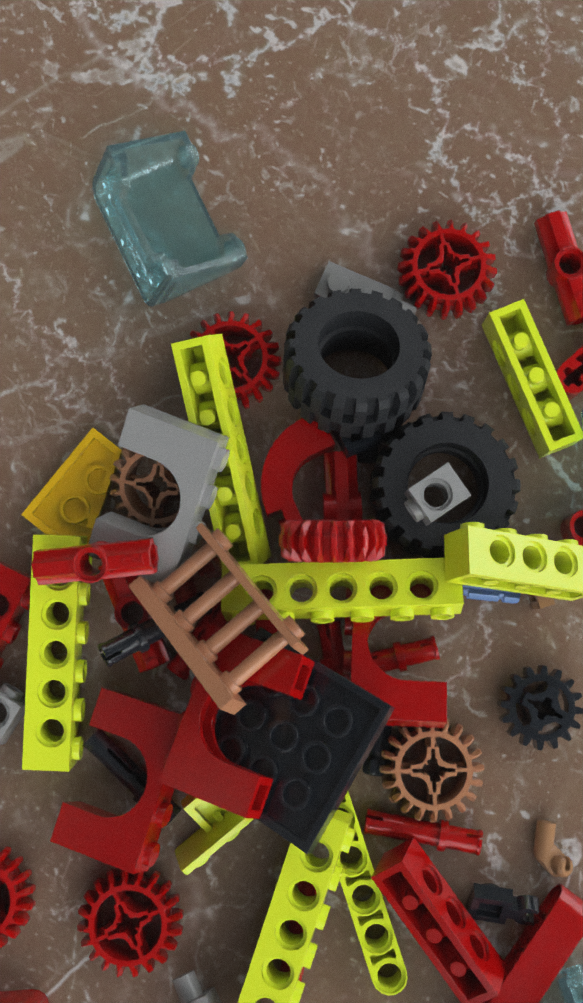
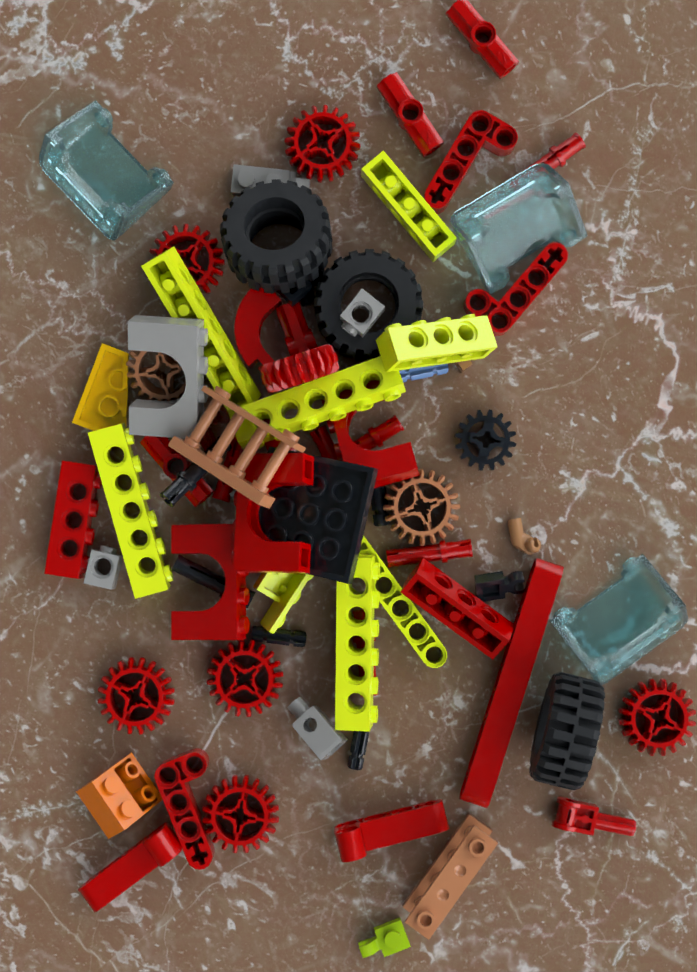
camera: 20 degrees left, 5 degrees up
(73, 562) = (123, 443): red piece -> none
(198, 880) = (280, 637): none -> black axle

